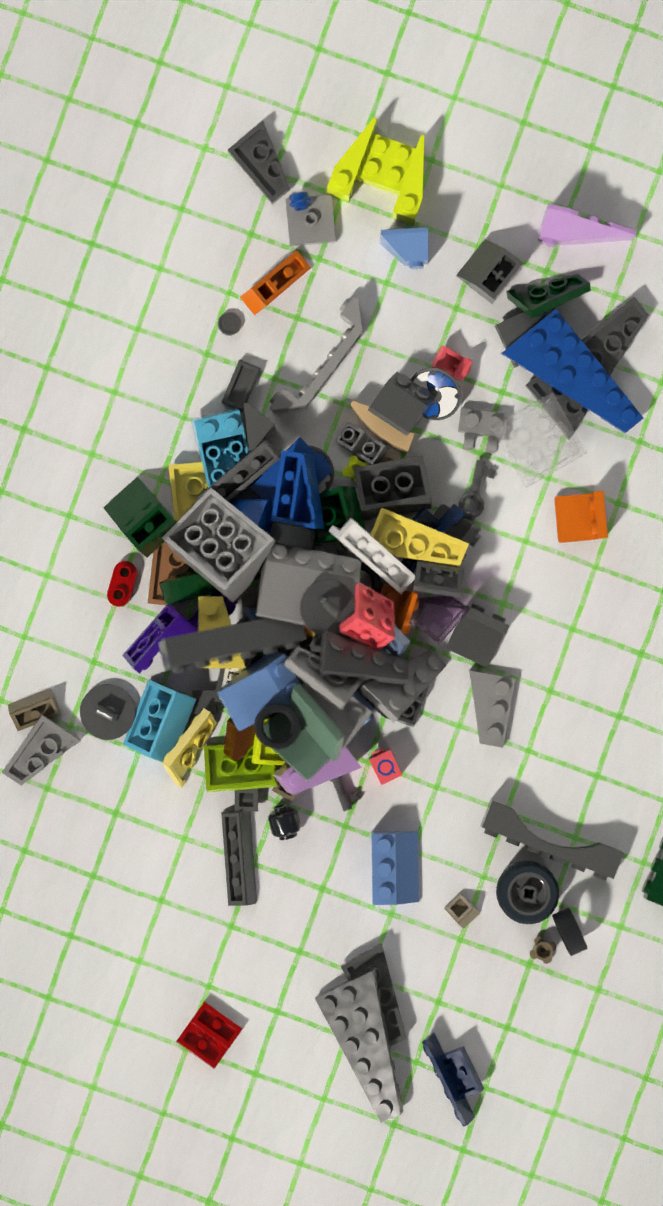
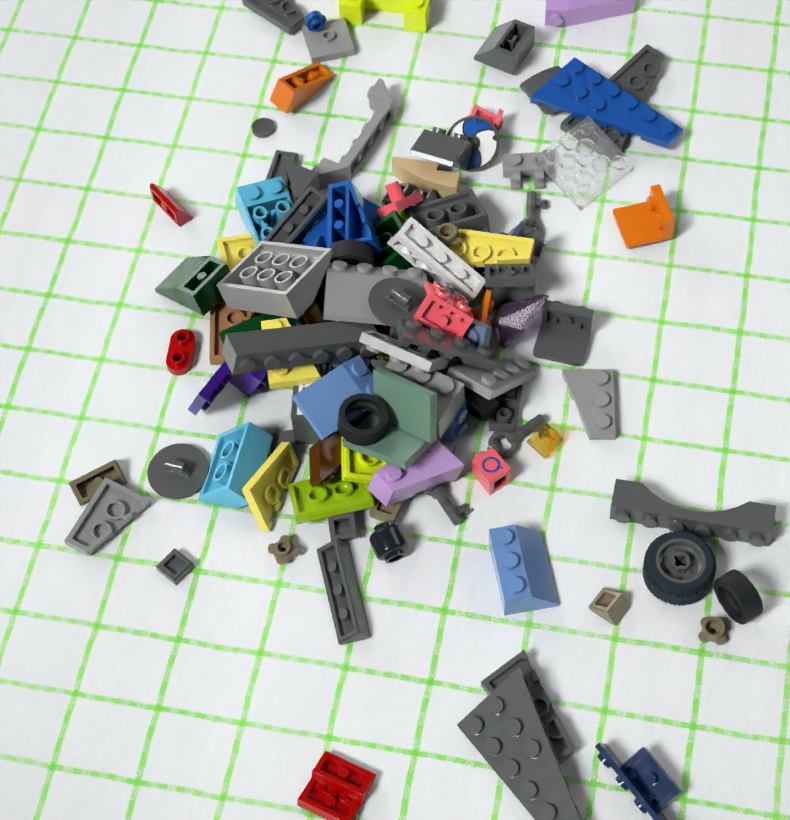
camera: 10 degrees left, 30 degrees down
(96, 808) = (175, 566): none -> dark grey tile
(128, 408) = (170, 205): none -> red slope
(193, 804) = (286, 556): none -> dark tan plate
(350, 466) = (398, 200): none -> coral tile
(382, 530) = (449, 230): none -> dark tan plate
(407, 245) = (420, 35): medium blue slope -> none
(432, 722) = (513, 437): none -> dark grey piece
(439, 742) = (545, 440): none -> clear yellow tile
(544, 298) = (555, 59): dark green wing -> none

